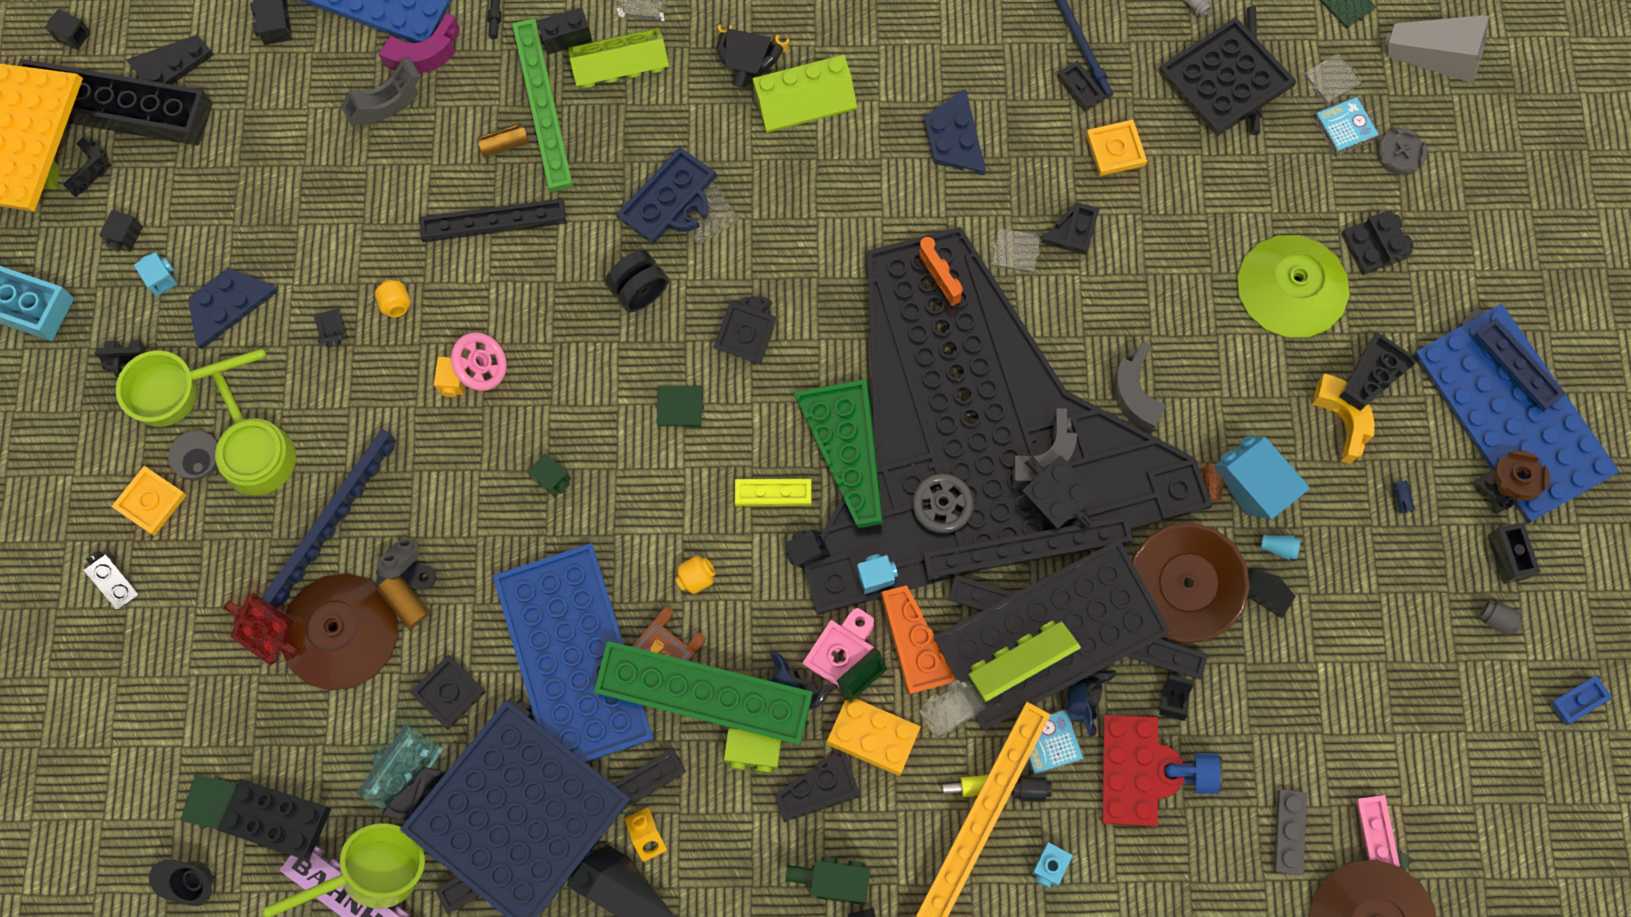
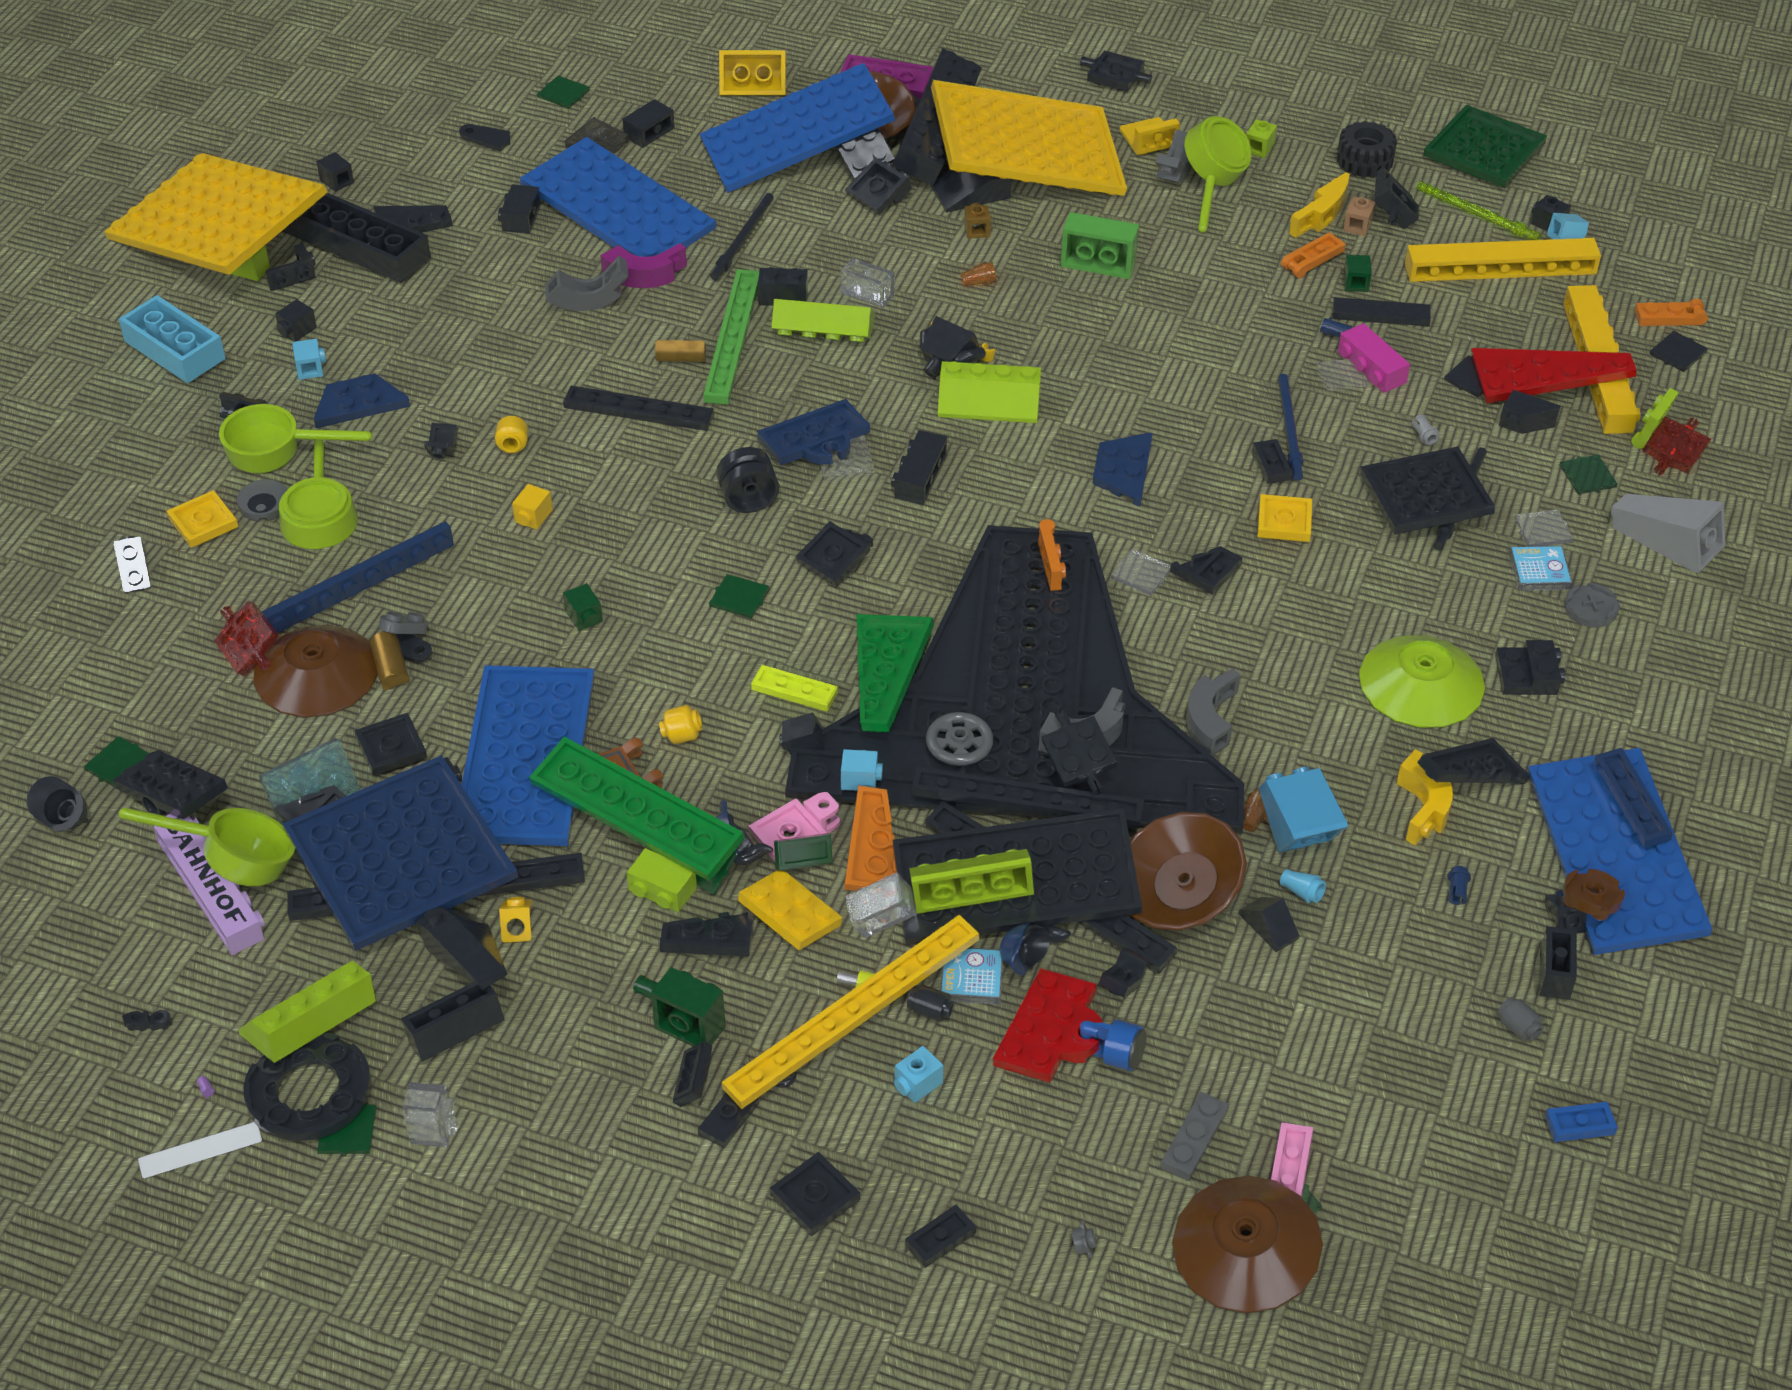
camera: 20 degrees right, 25 degrees down
(491, 347) = (554, 515): bright pink plate -> none
(778, 203) = (919, 467): none -> black brick

